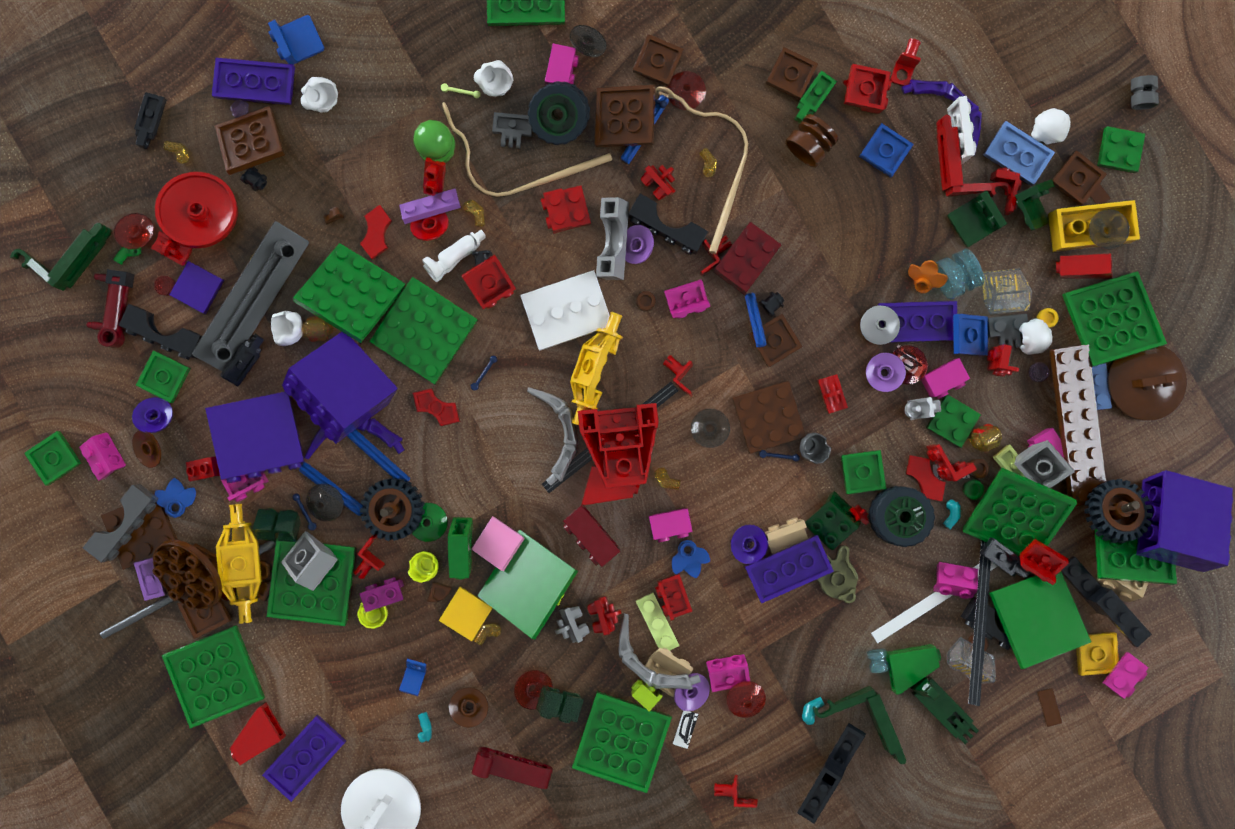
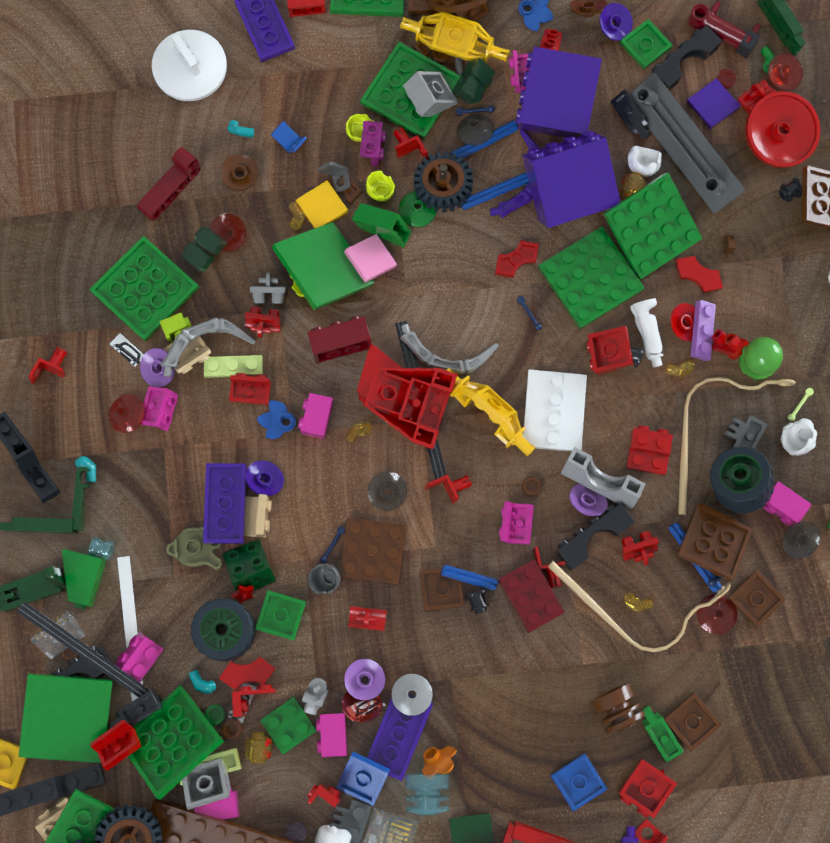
camera: 115 degrees right, 10 degrees down
(427, 614) = (336, 172): none -> dark grey bracket

